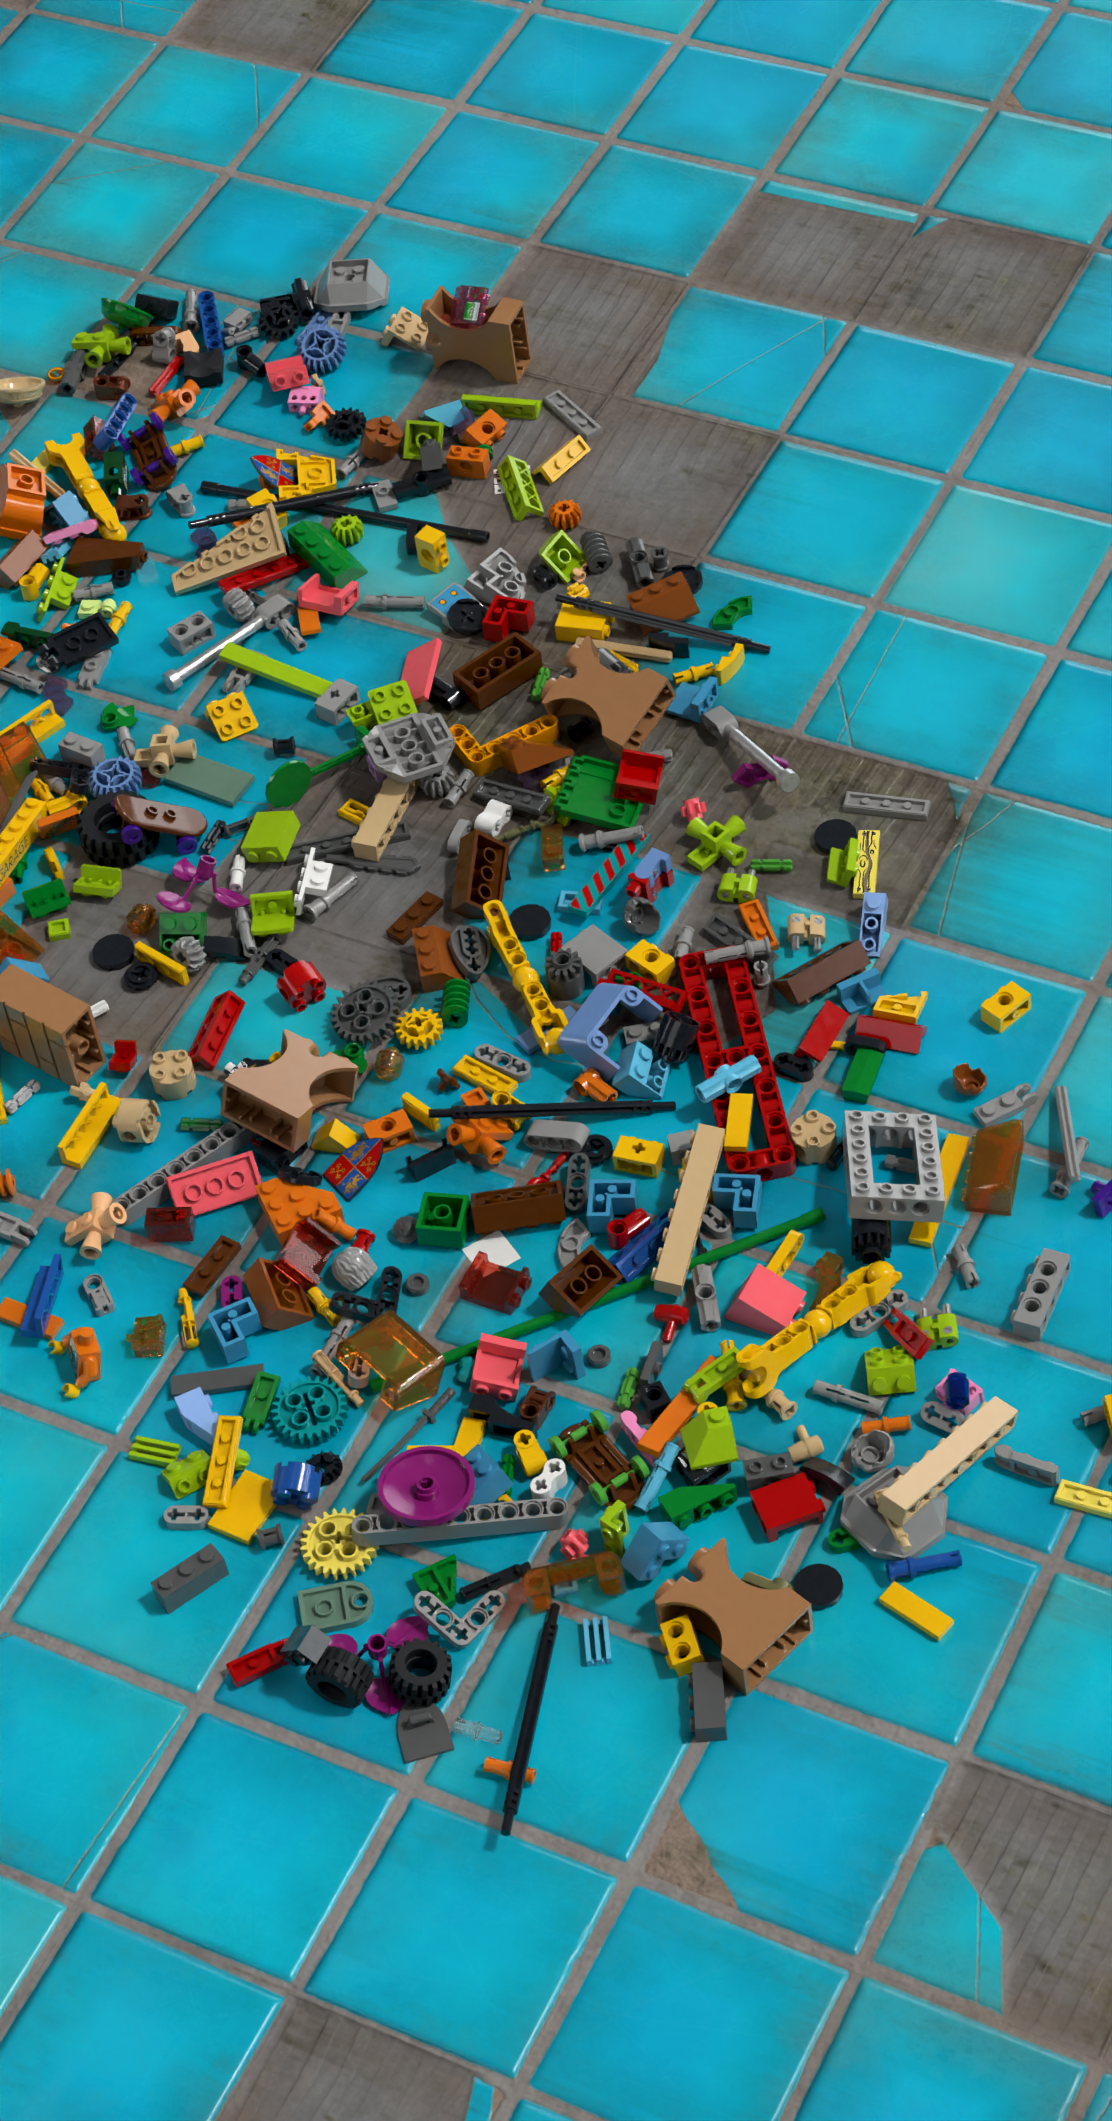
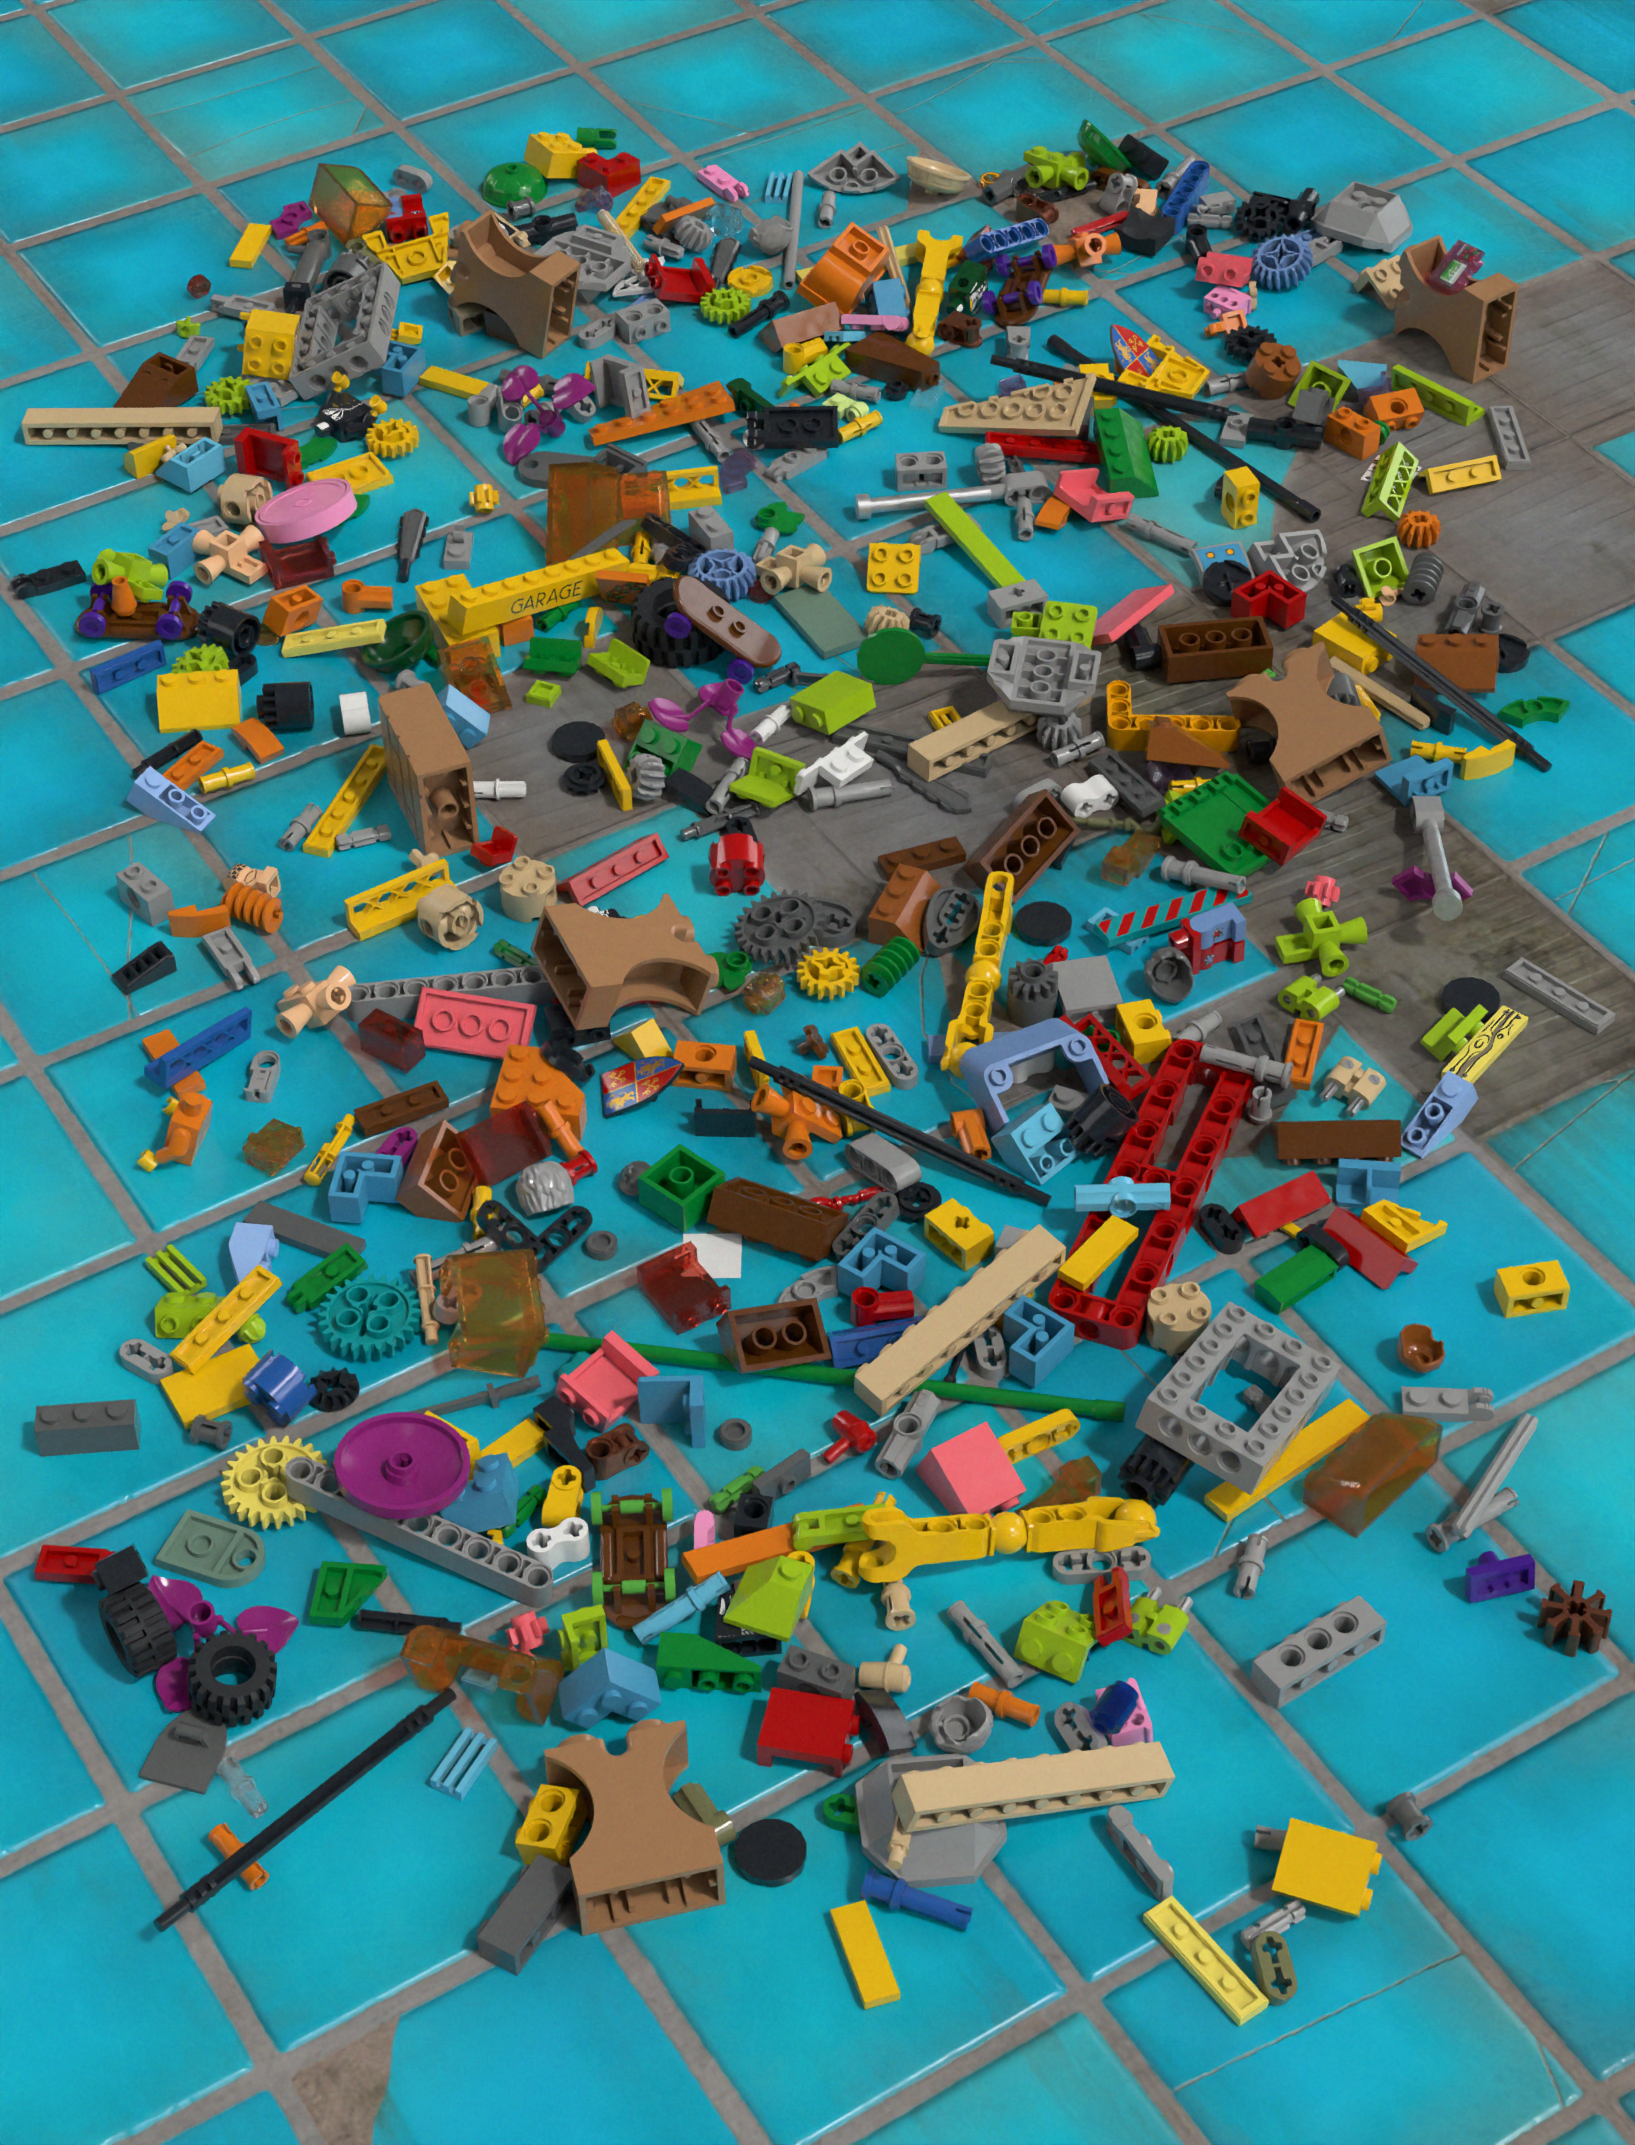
camera: 25 degrees right, 5 degrees down
(261, 761) = (885, 617): none -> tan gear
(462, 1625) = (332, 1652): light grey beam -> none

